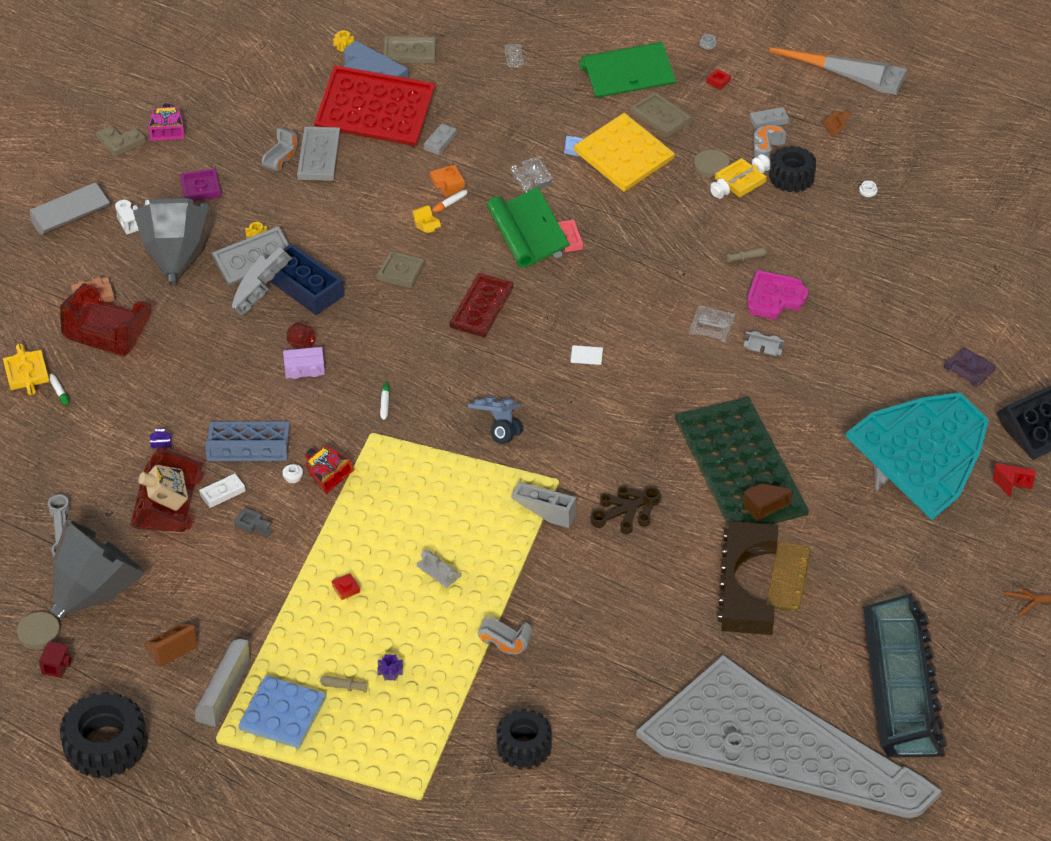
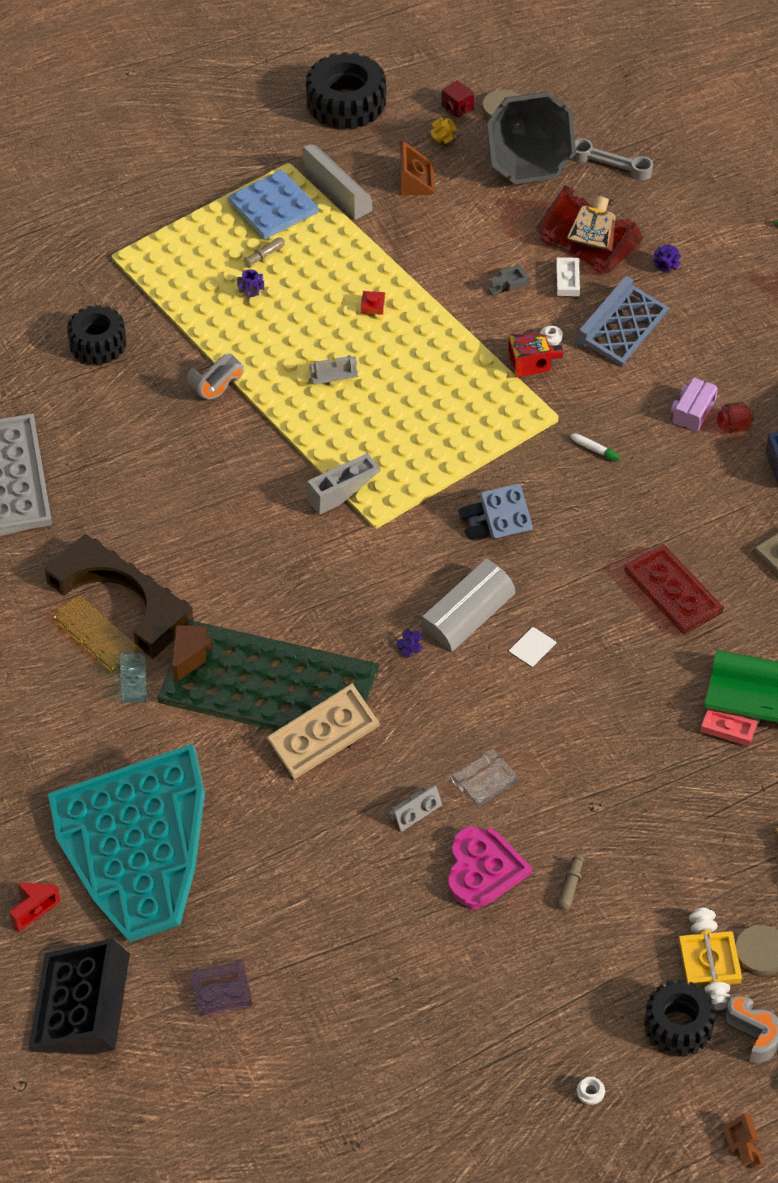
camera: 125 degrees right, 5 degrees up
(105, 646) = (443, 130): none -> yellow gear
(586, 396) = (468, 605): none -> light grey brick
(643, 408) = (409, 643): none -> dark purple plant
(648, 498) = (296, 526): dark brown plant -> none
(757, 406) = (323, 731): none -> tan tile
(807, 532) = (132, 677): none -> clear light blue slope

